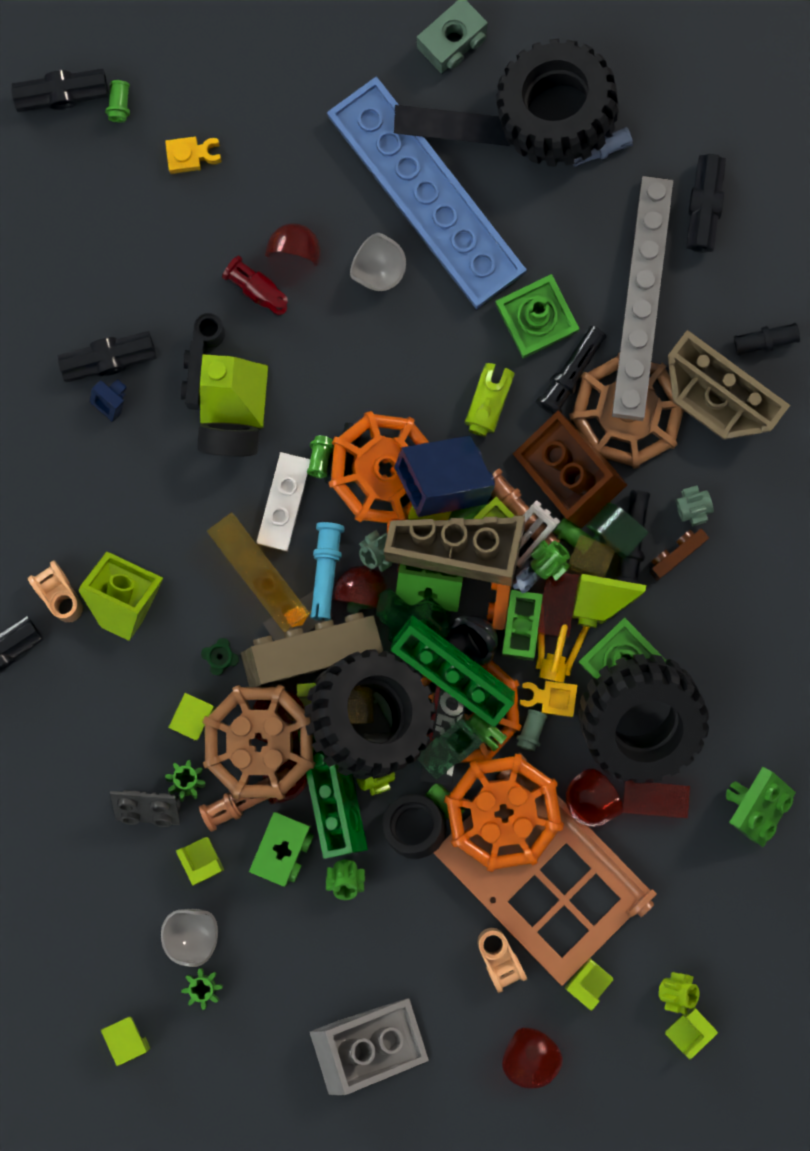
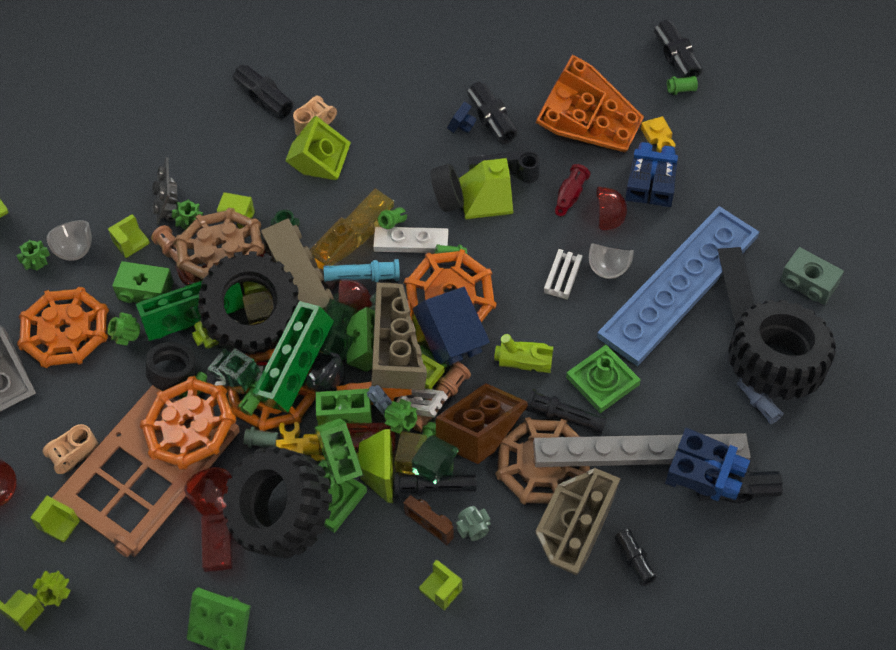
camera: 75 degrees right, 25 degrees down
(134, 234) = (589, 109): none -> orange wedge
(255, 522) = (388, 219): none -> bright green pin
(258, 178) = (653, 167): none -> hips
(306, 943) = (56, 316): none -> orange plate
(354, 313) = (568, 258): none -> white tile
(592, 638) = (338, 451): none -> bright green brick
(699, 223) = (705, 466): none -> dark blue hips
(759, 557) = (441, 585): none -> lime panel

